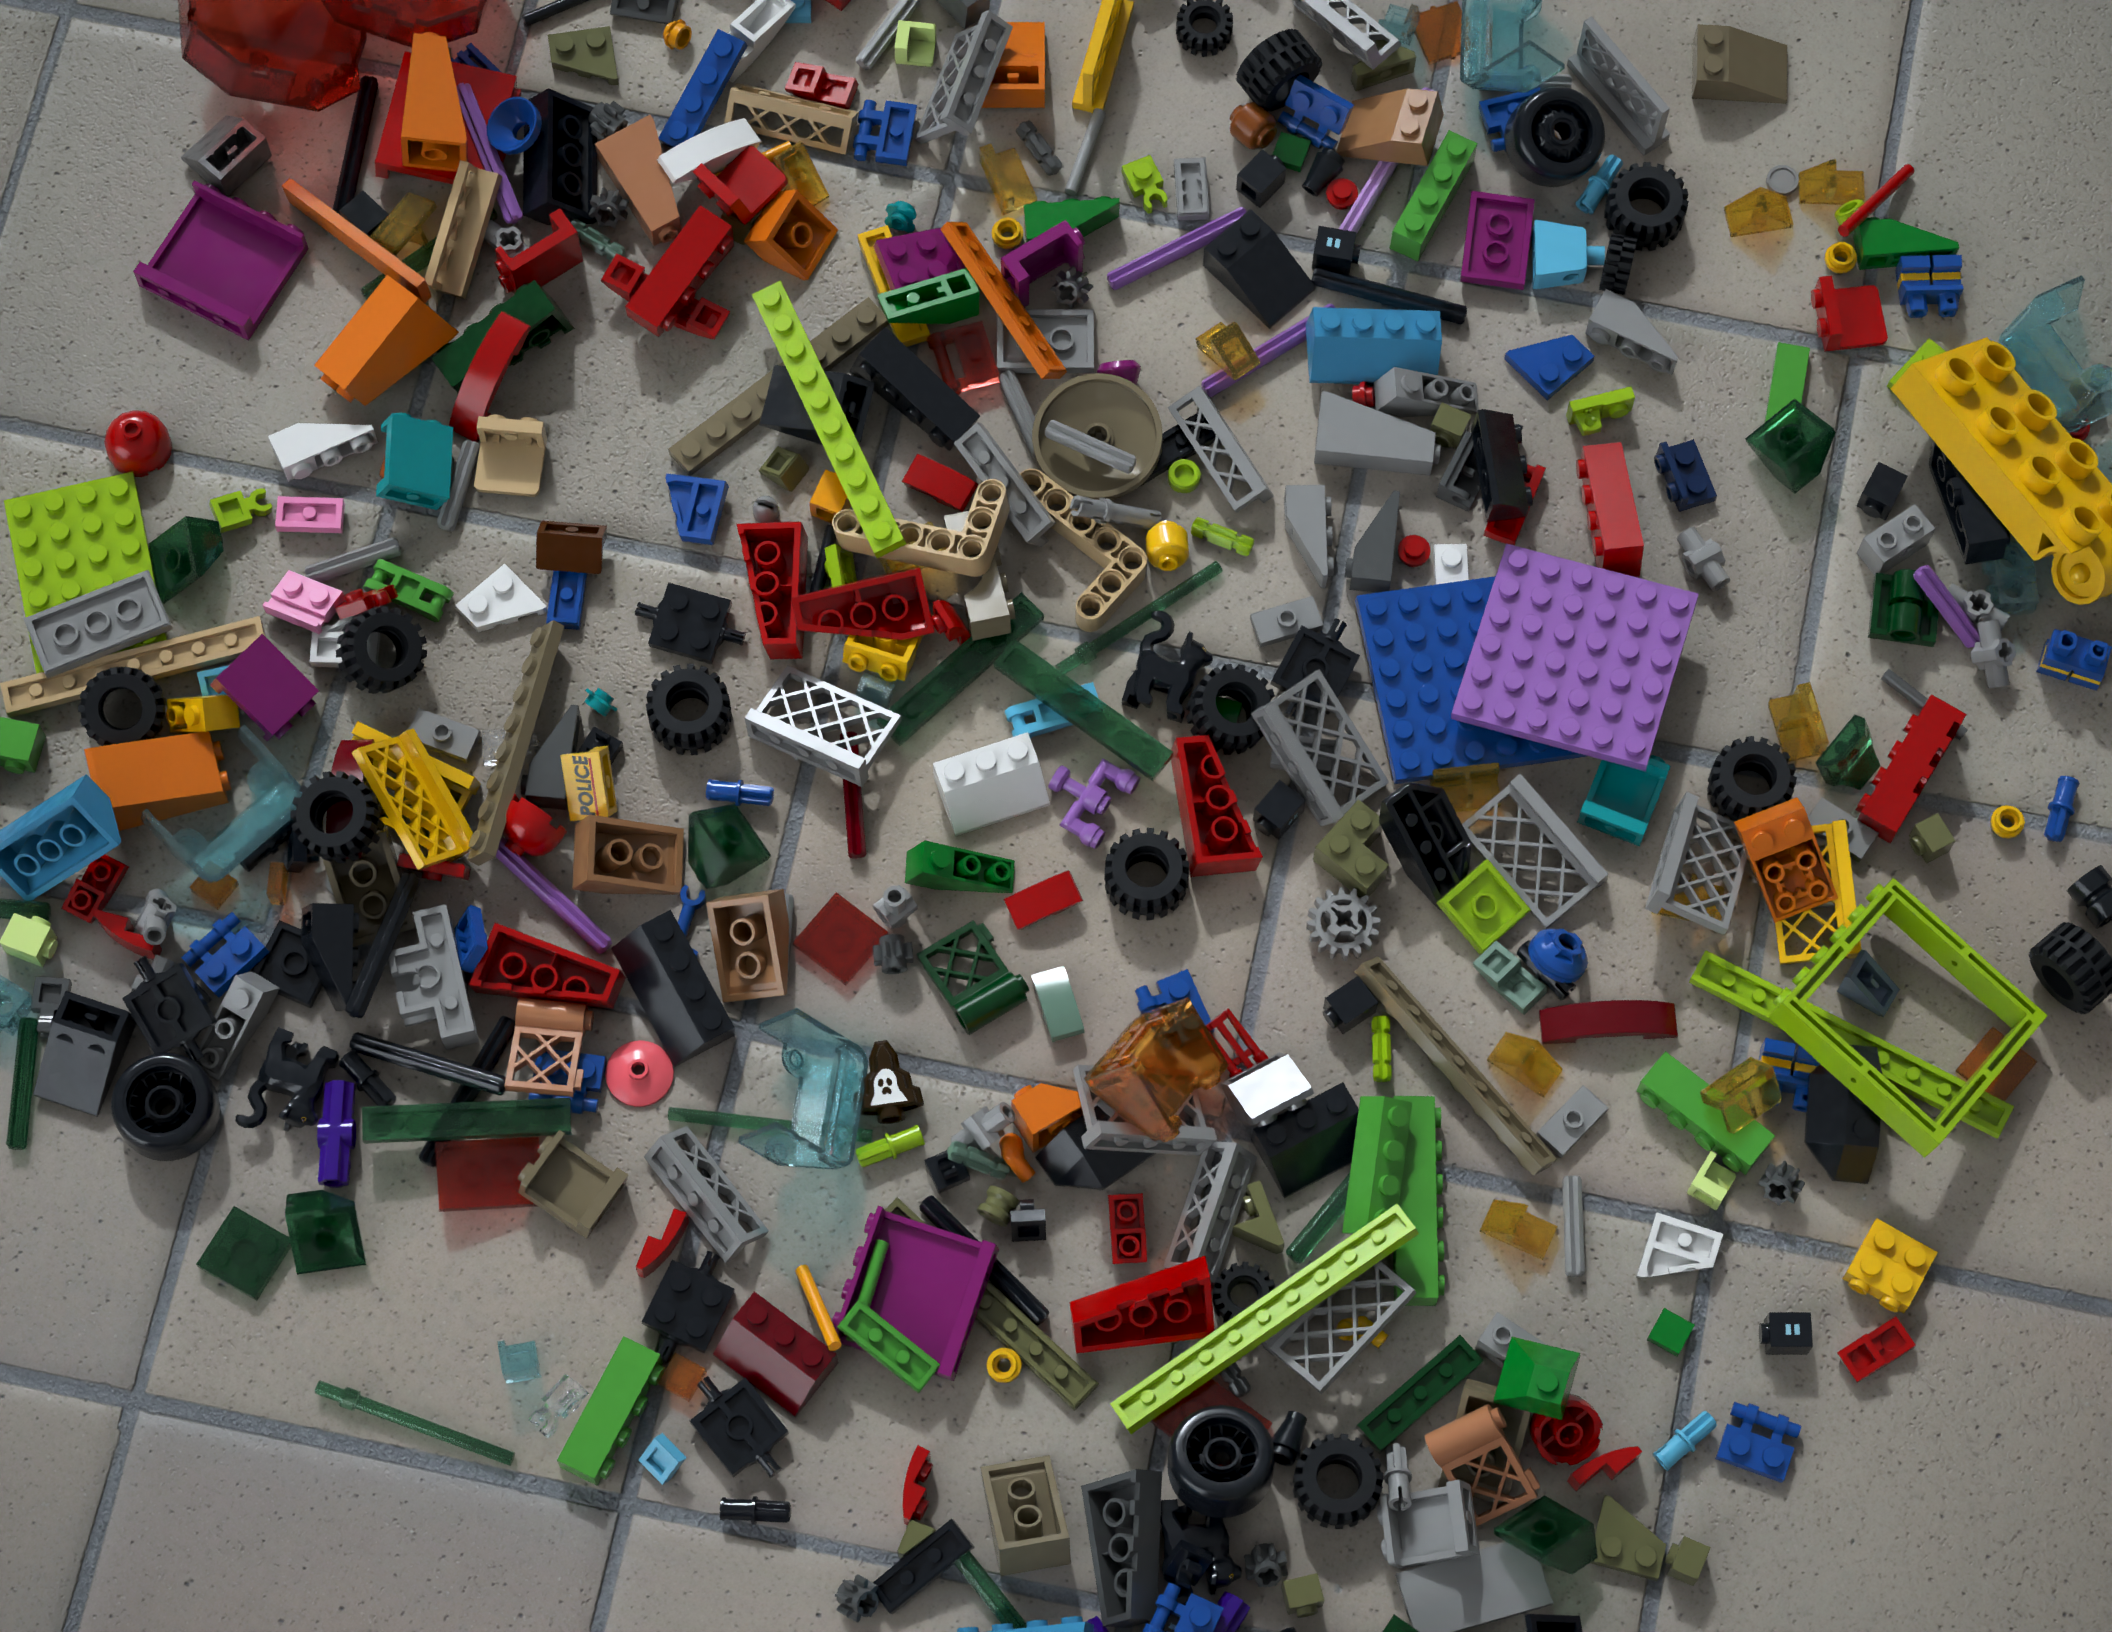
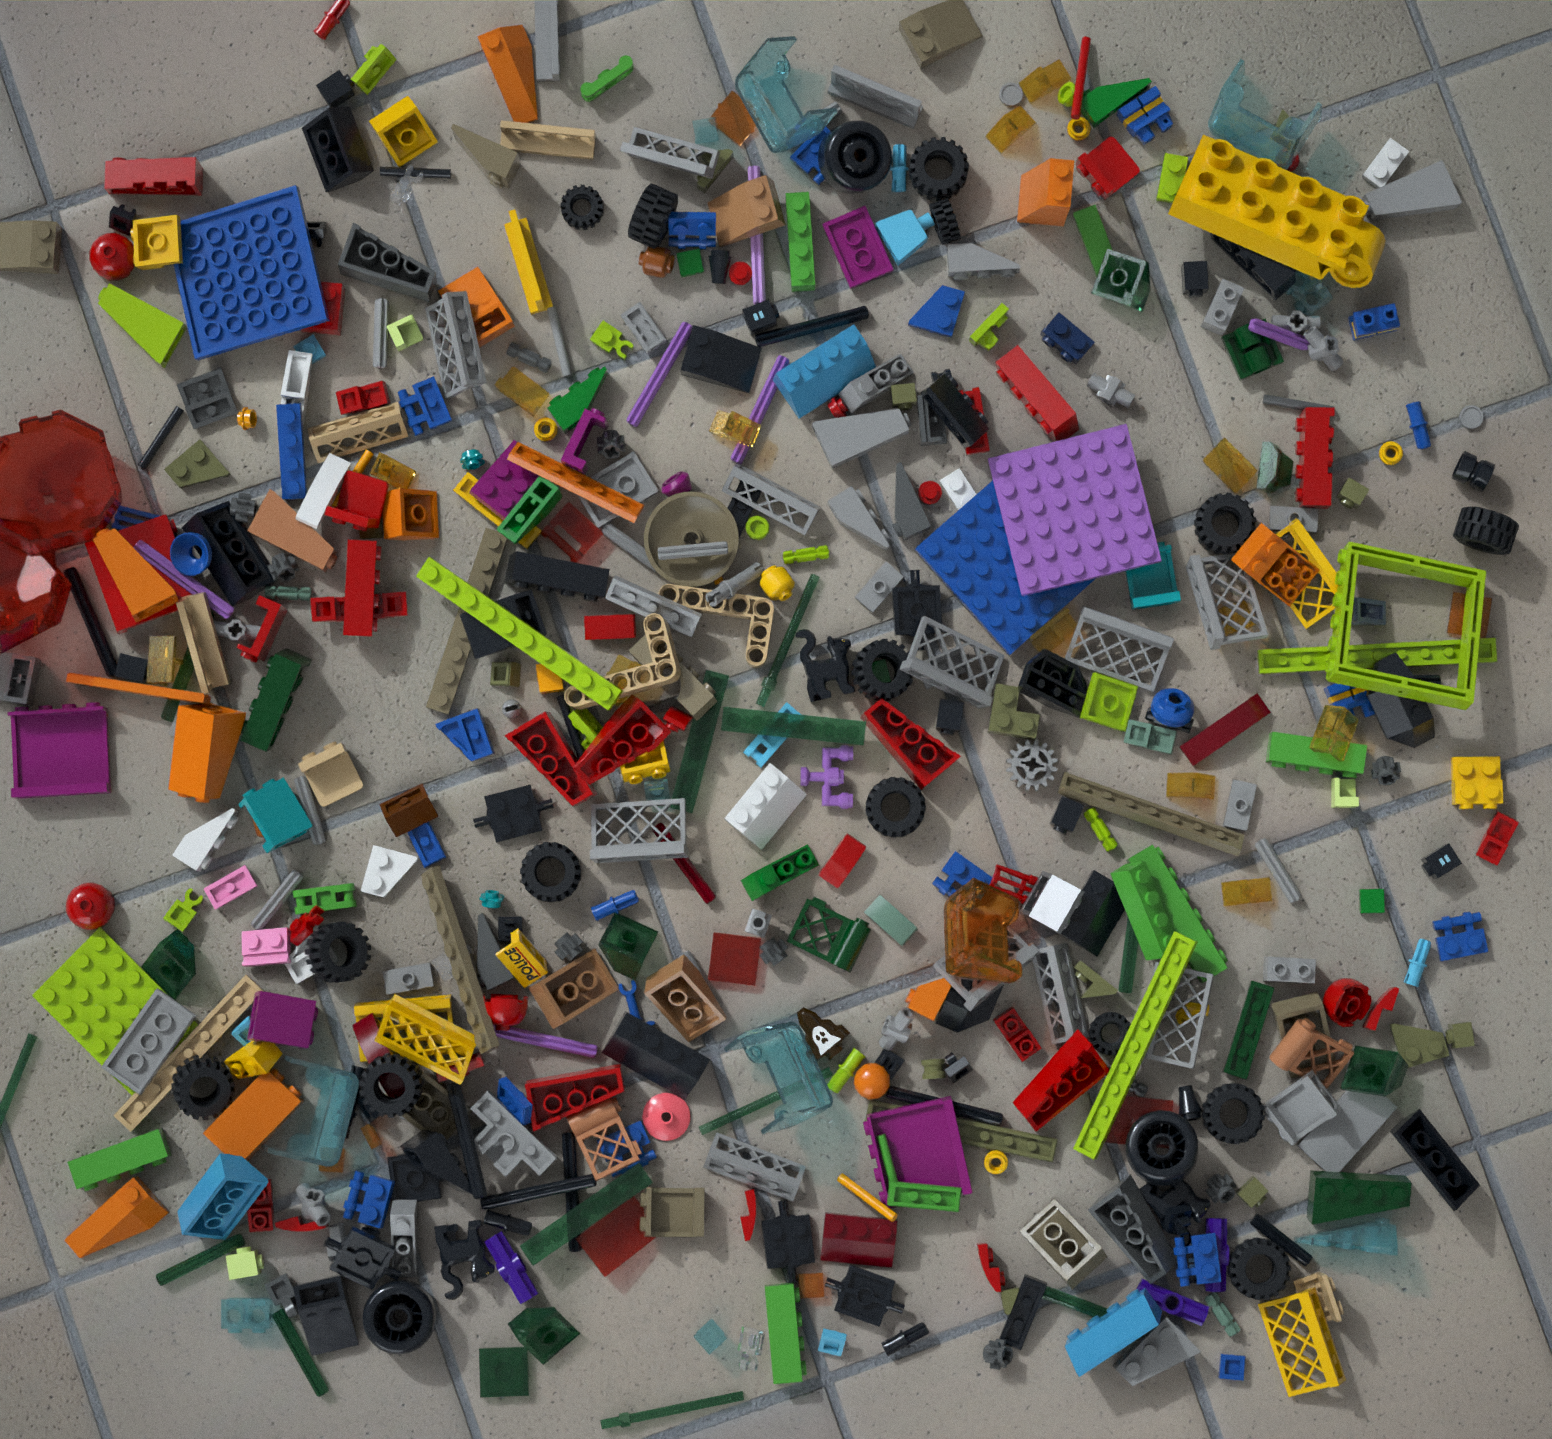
camera: 30 degrees left, 15 degrees up
(486, 373) = (284, 731): red slope -> none
(653, 805) = (568, 946): none -> dark grey gear
(913, 1176) = (872, 1081): none -> orange hair
(978, 1160) = (905, 1049): sand green axle -> none
(1013, 1154) = (922, 1031): orange arm -> none
(1261, 178) = (684, 294): black brick -> none
(1398, 1477) = (1266, 1089): light grey axle -> none
(1537, 1378) = (1316, 986): green slope -> none
(1678, 1248) = (1347, 846): white wing -> none
(1761, 296) = (1046, 193): none -> orange slope

